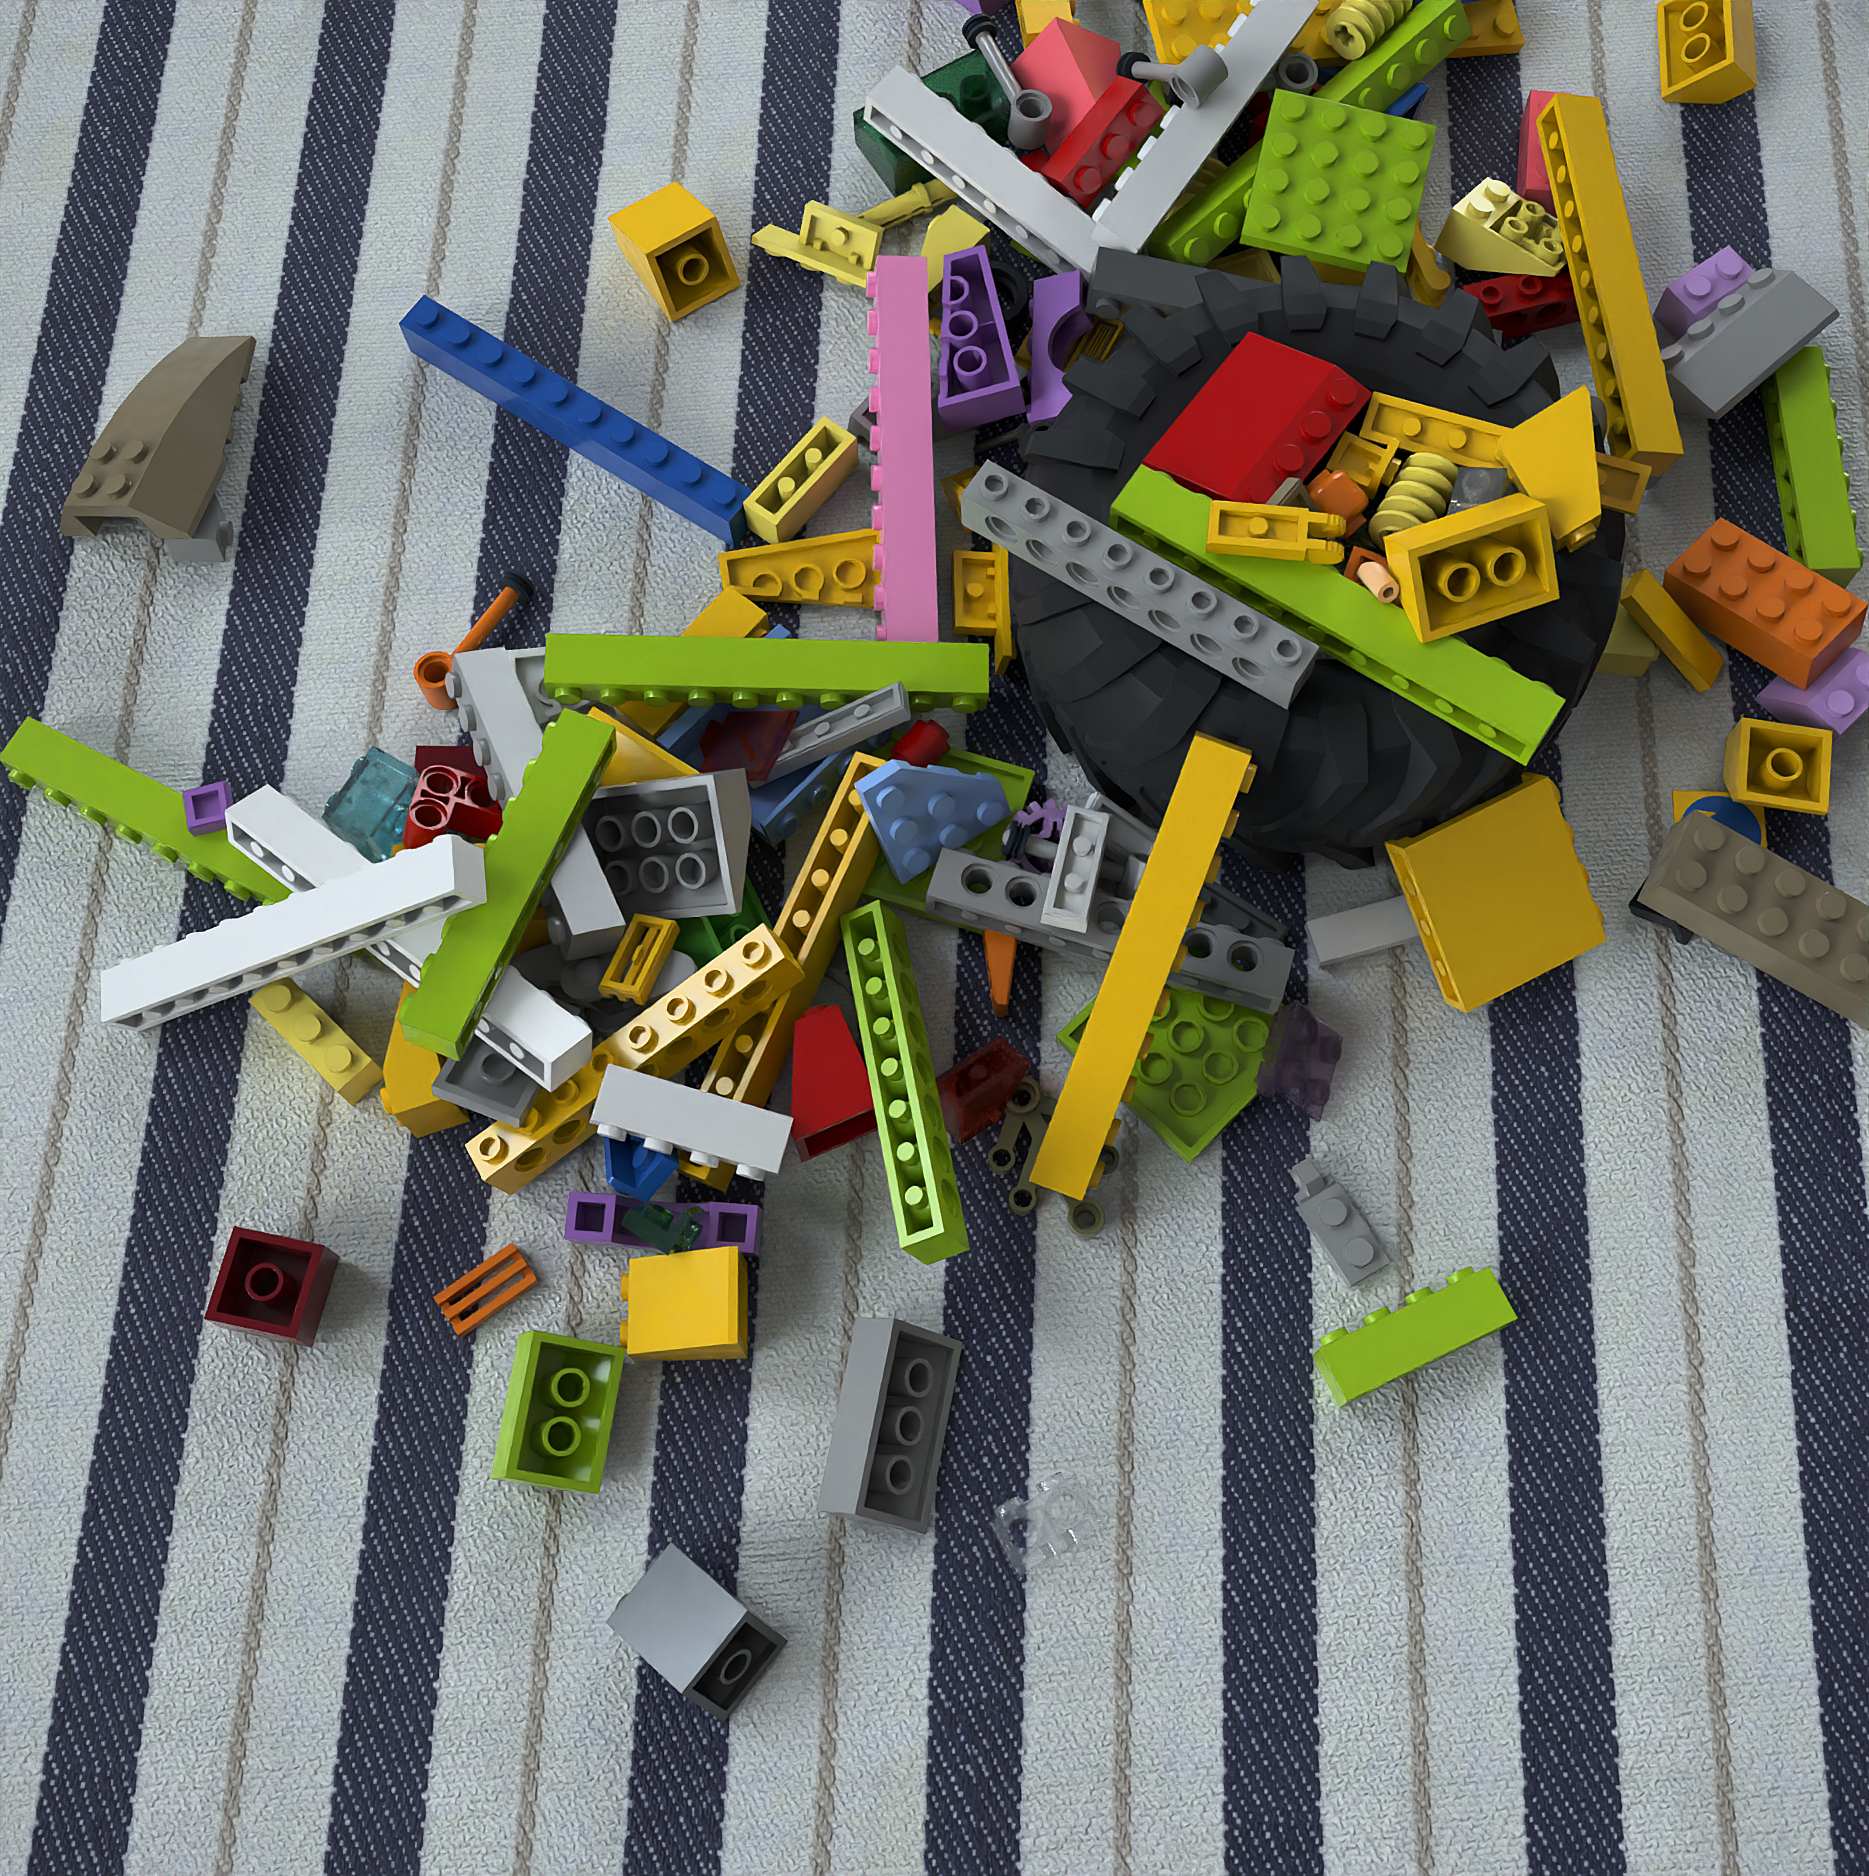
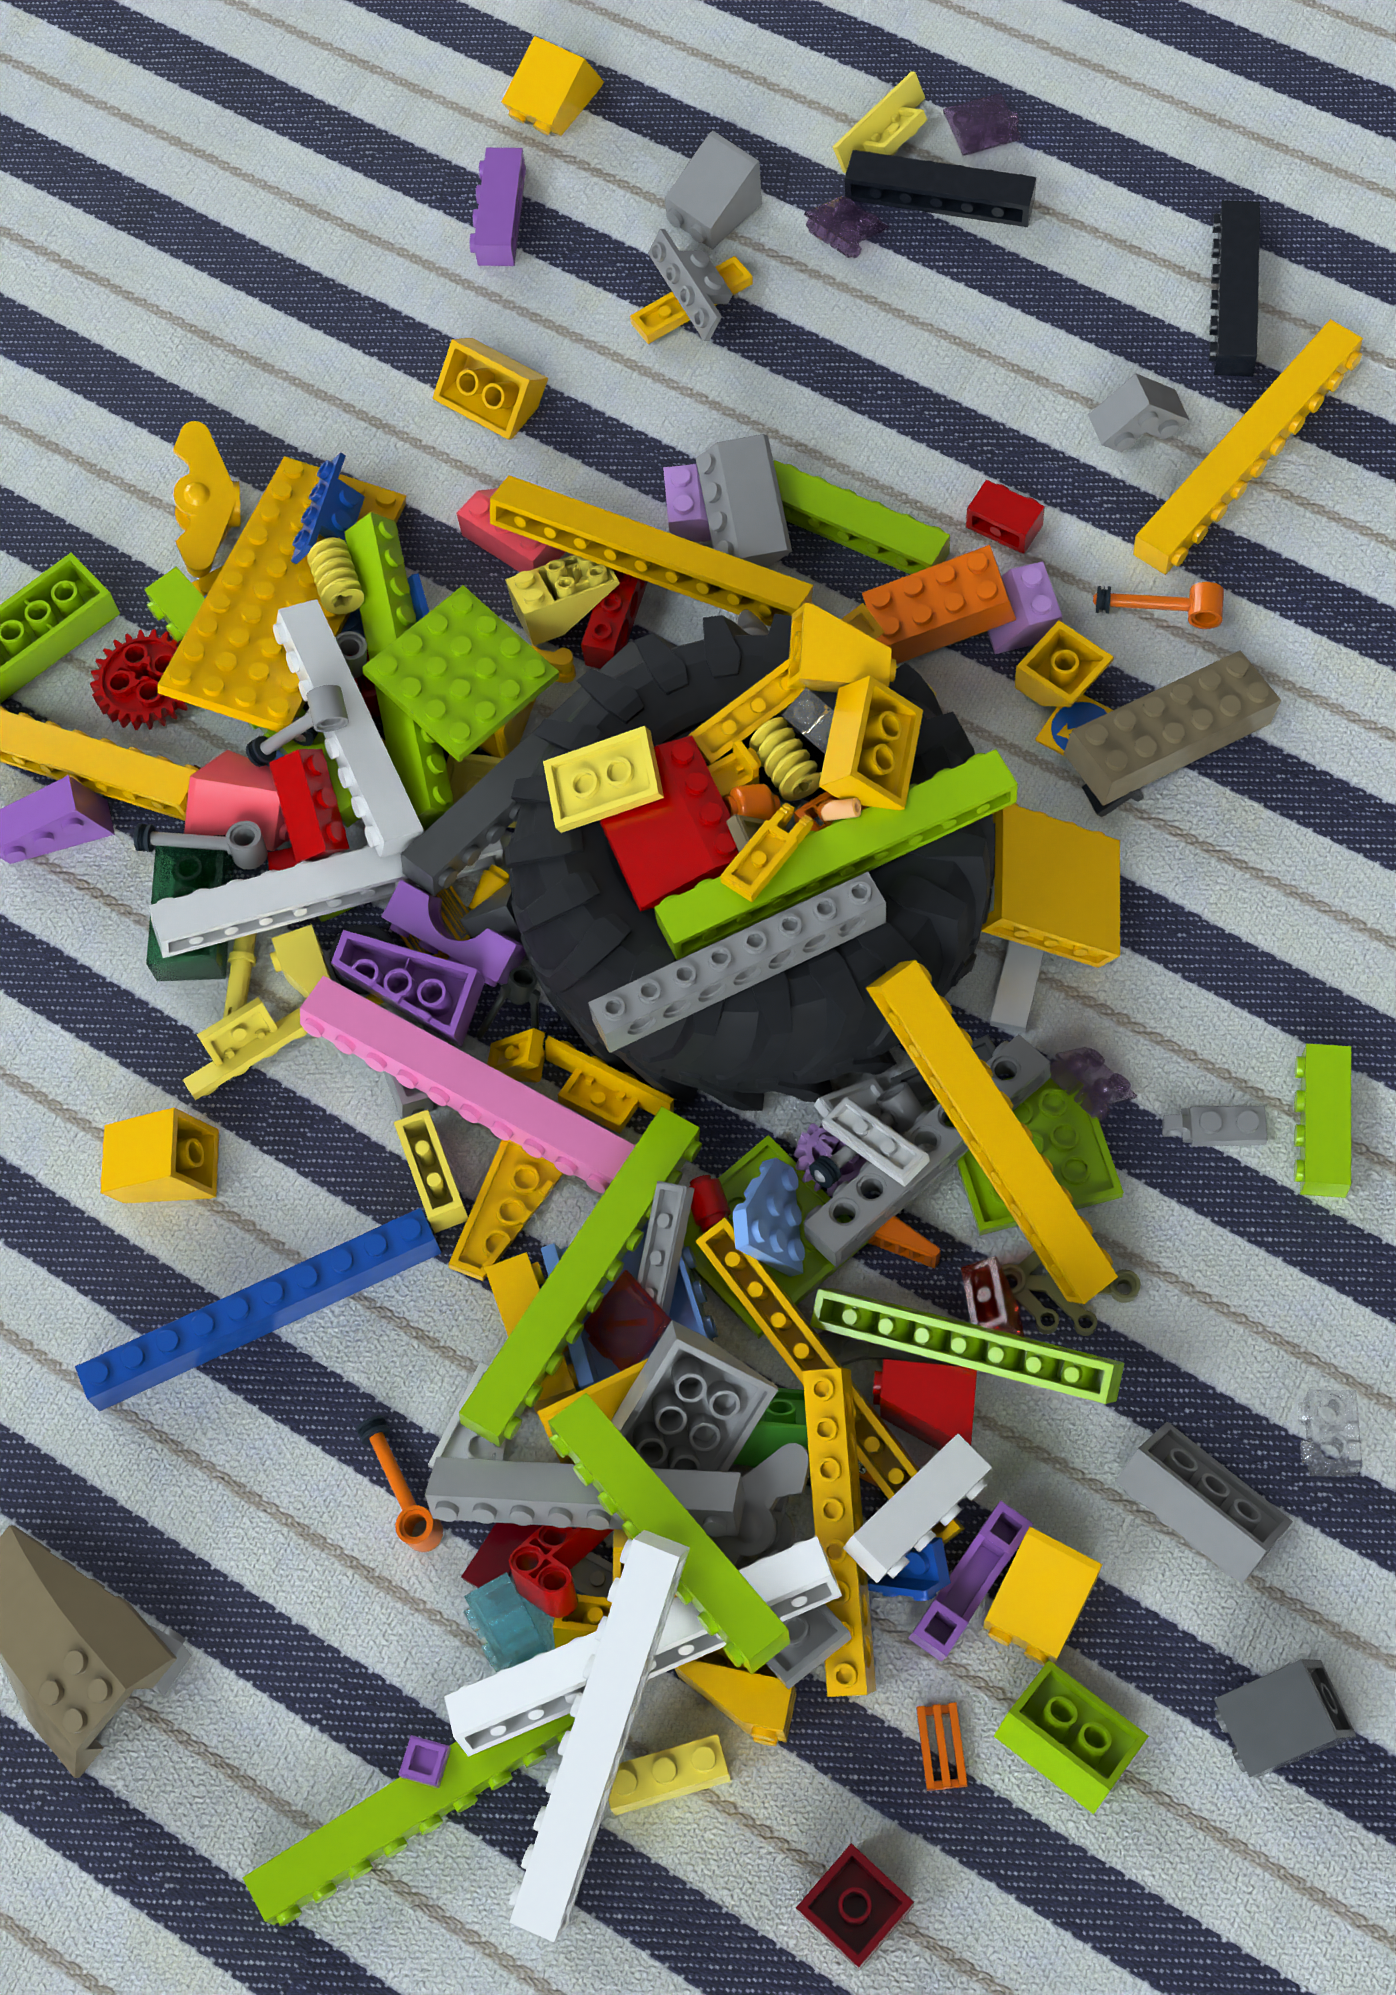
camera: 55 degrees left, 5 degrees down
(647, 958) = (787, 1503): yellow tile -> none
(657, 1227) = (976, 1581): clear green bracket -> none
(1260, 337) = (603, 779): none -> light yellow plate
(1672, 630) = (939, 669): yellow tile -> none

